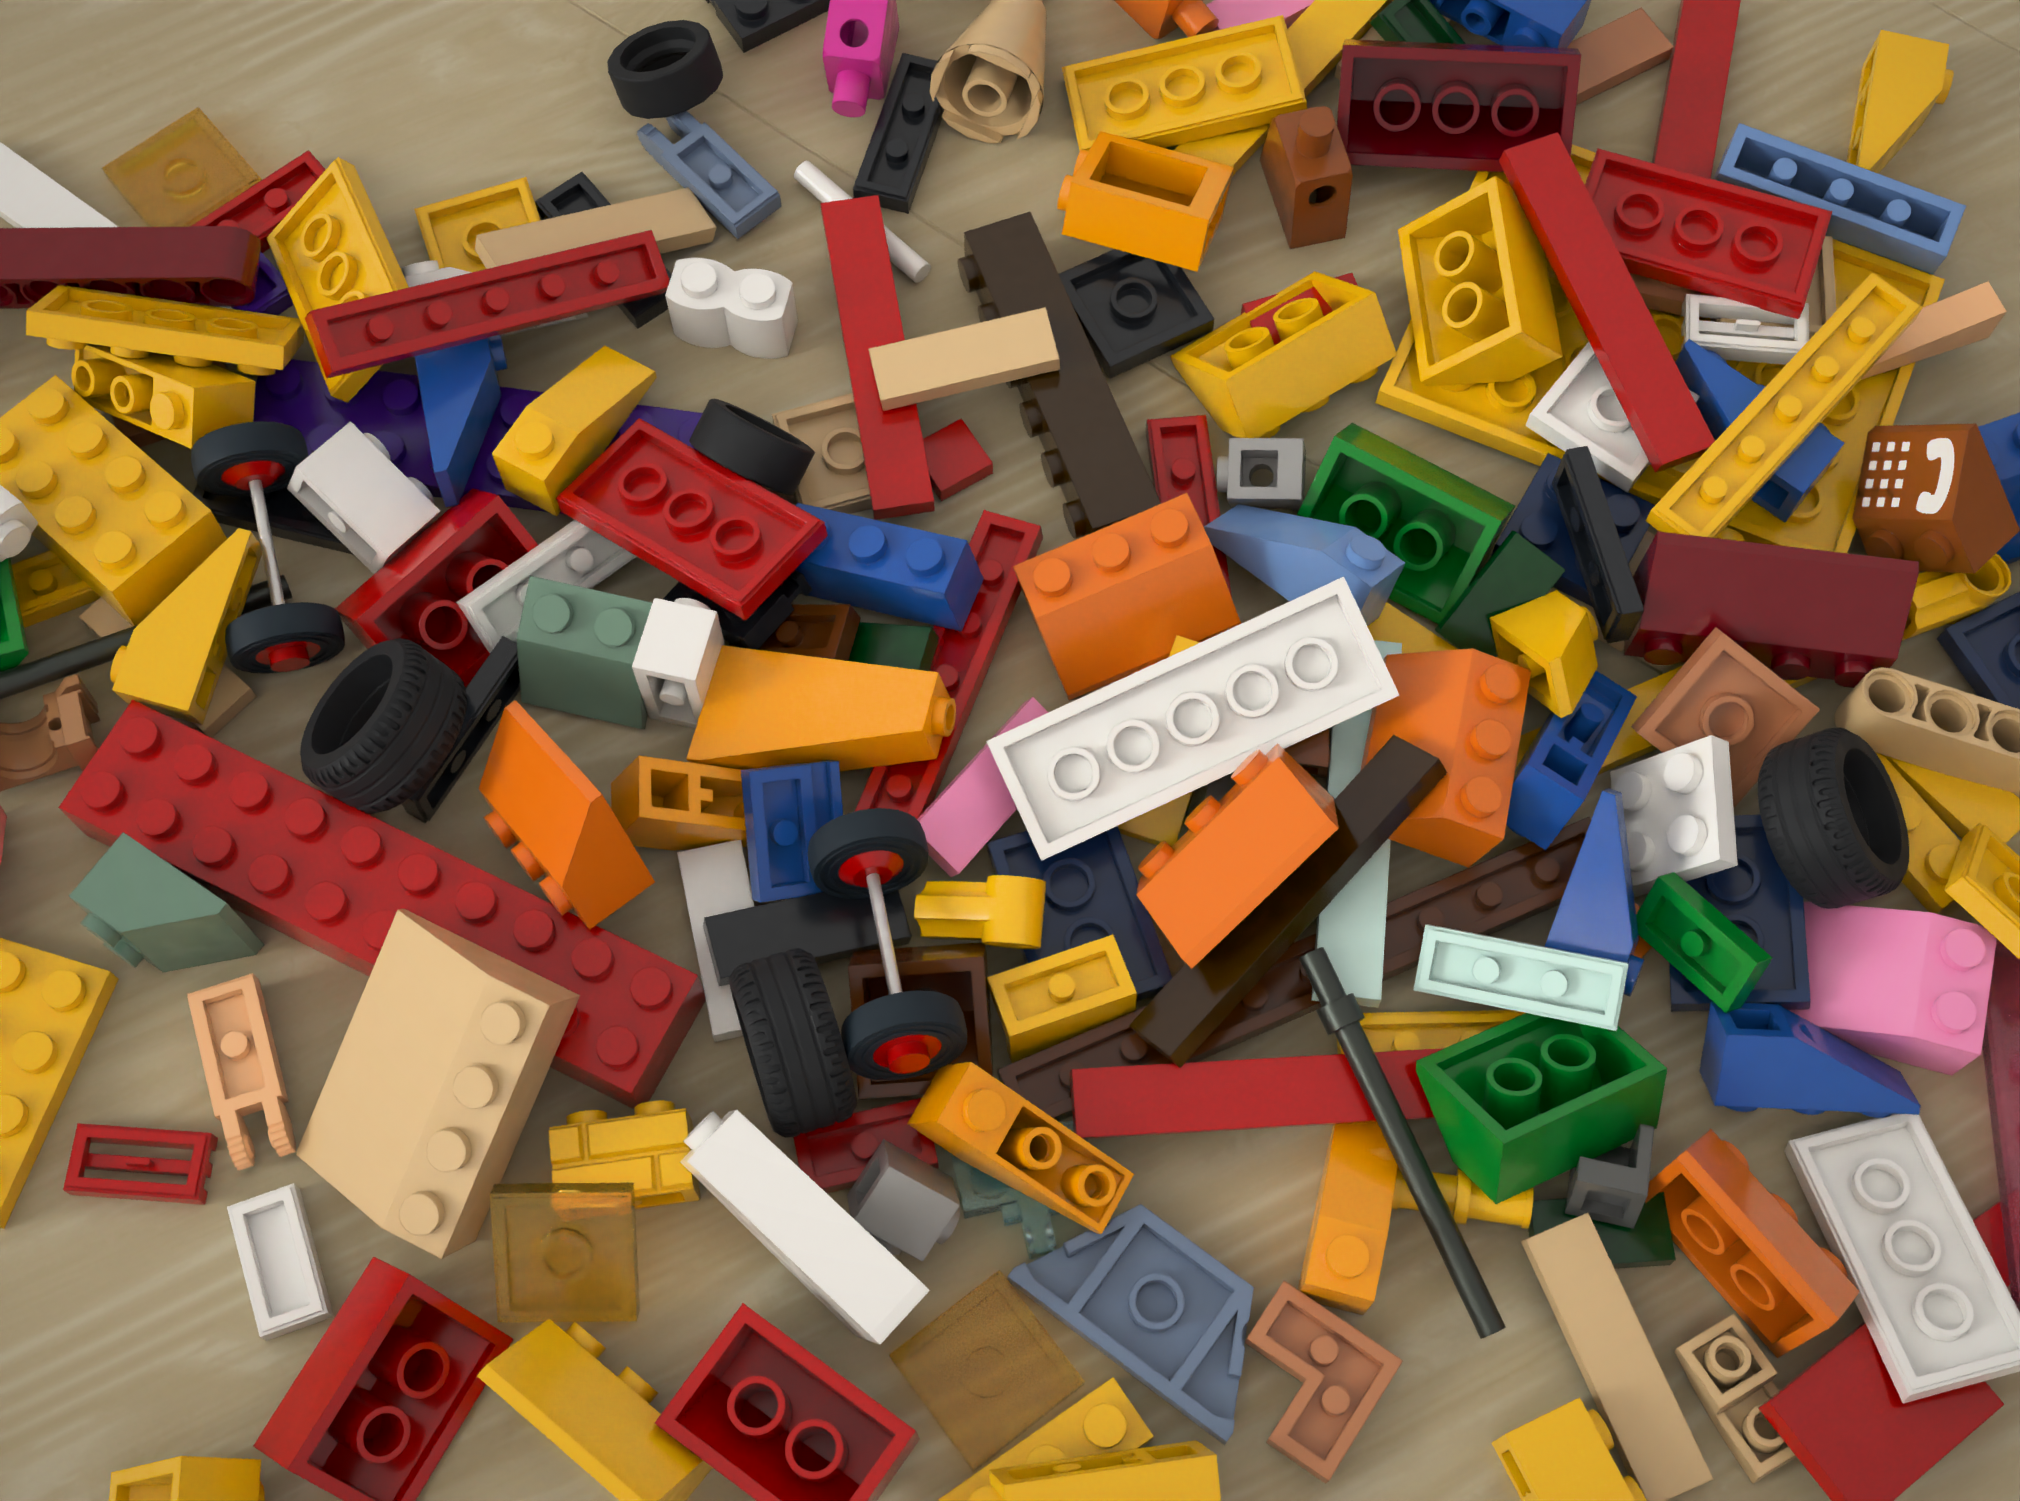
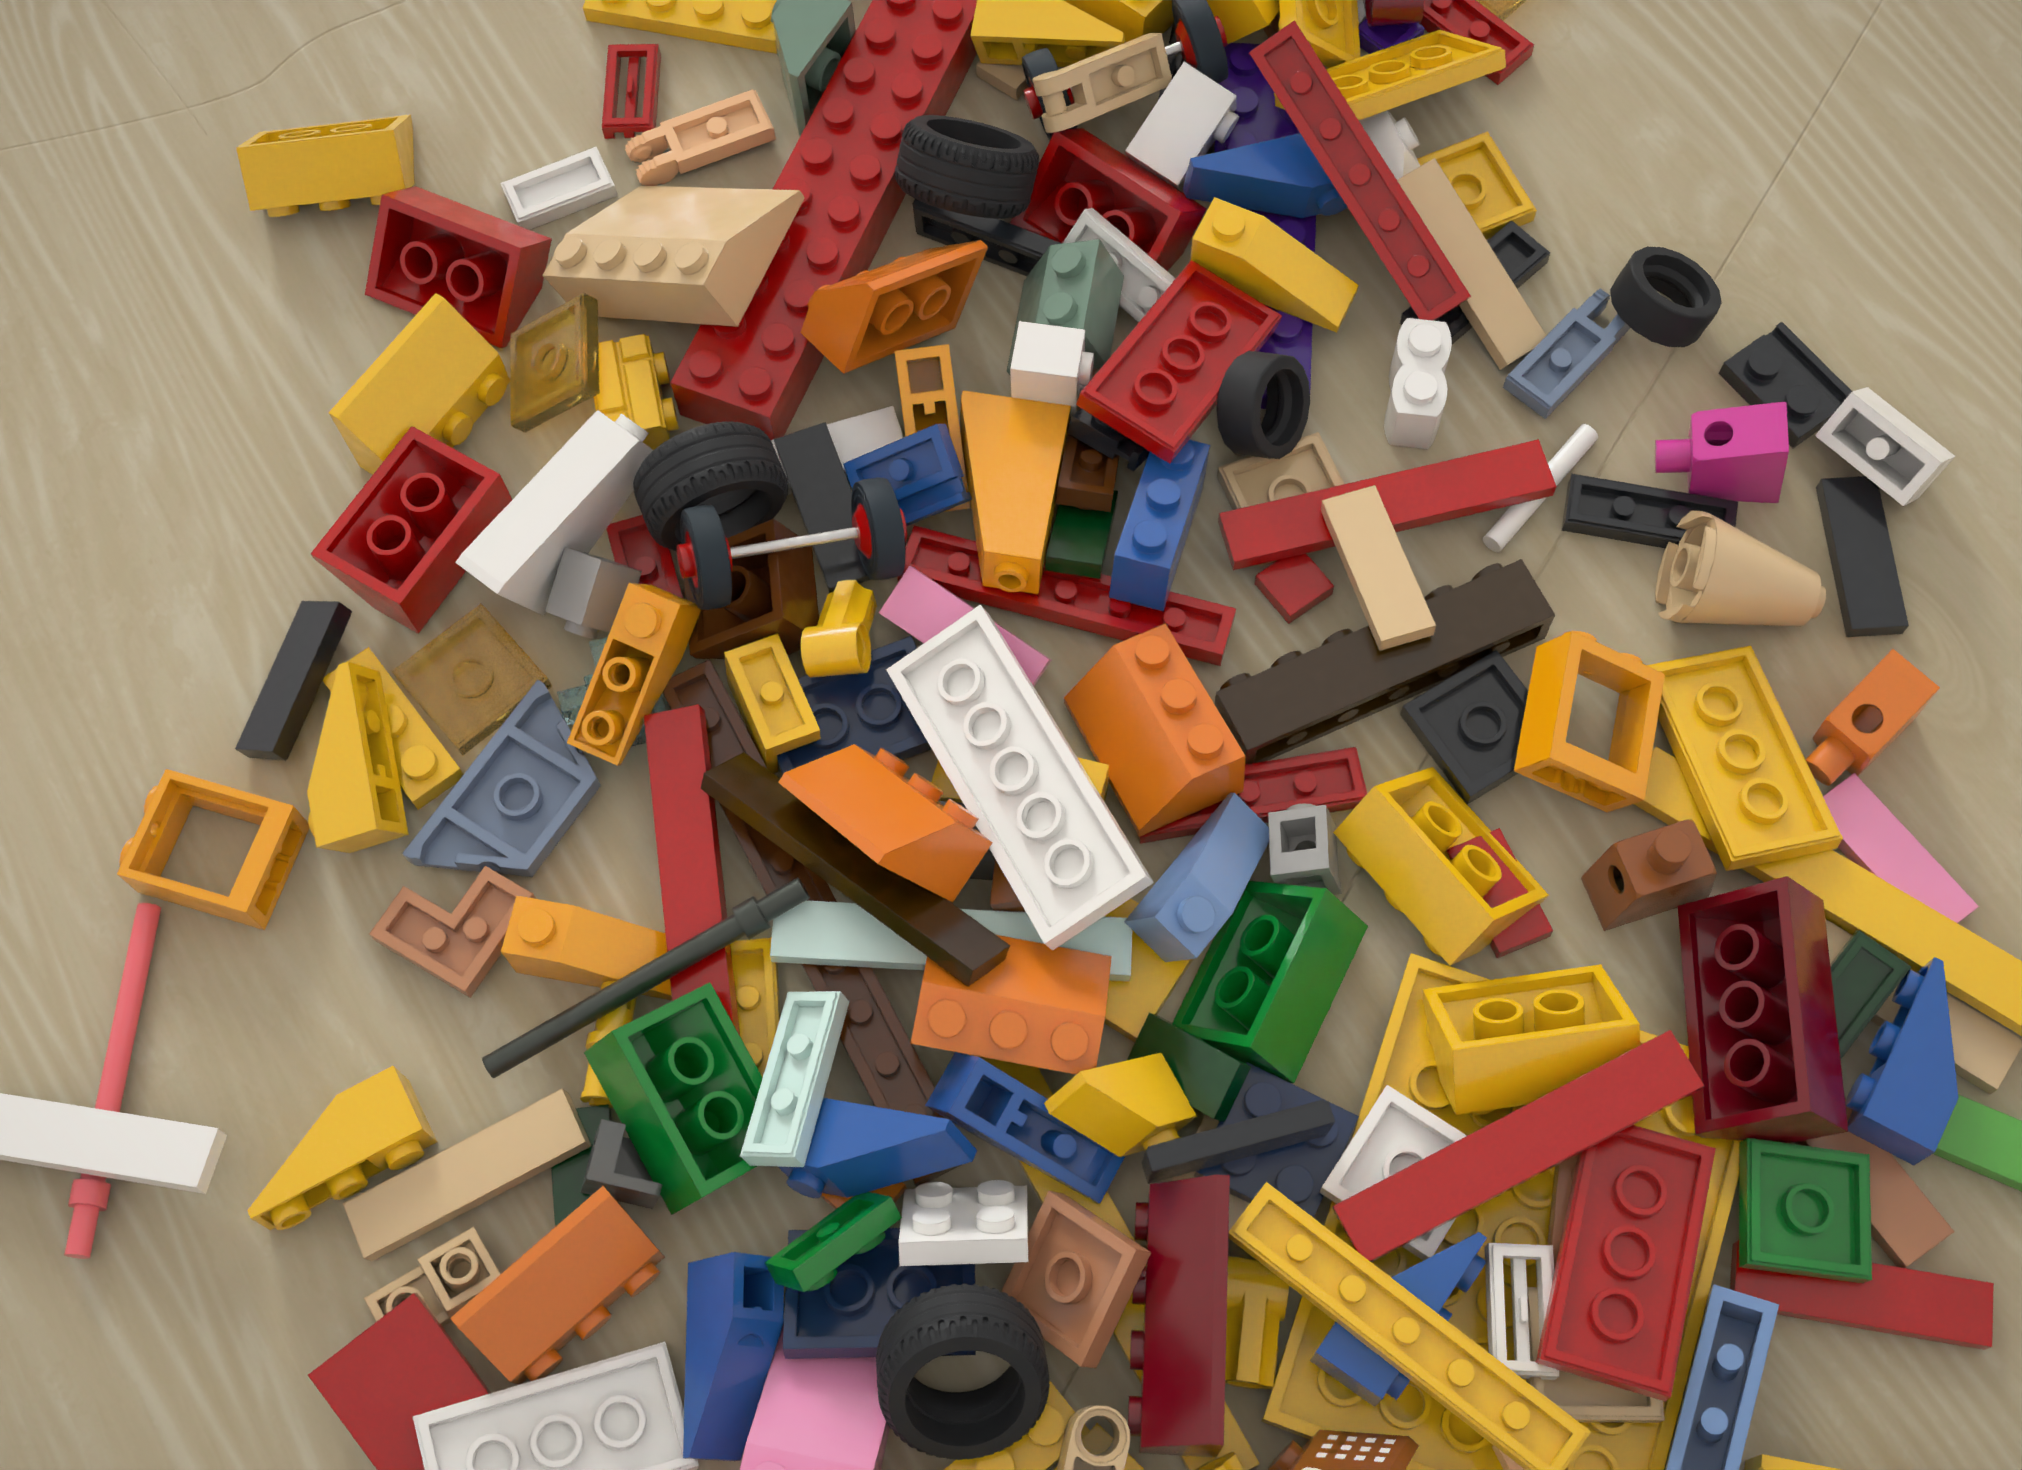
camera: 90 degrees right, 0 degrees up
(304, 559) = (1104, 82): none -> tan plate
(1634, 107) = (1804, 1210): none -> green tile

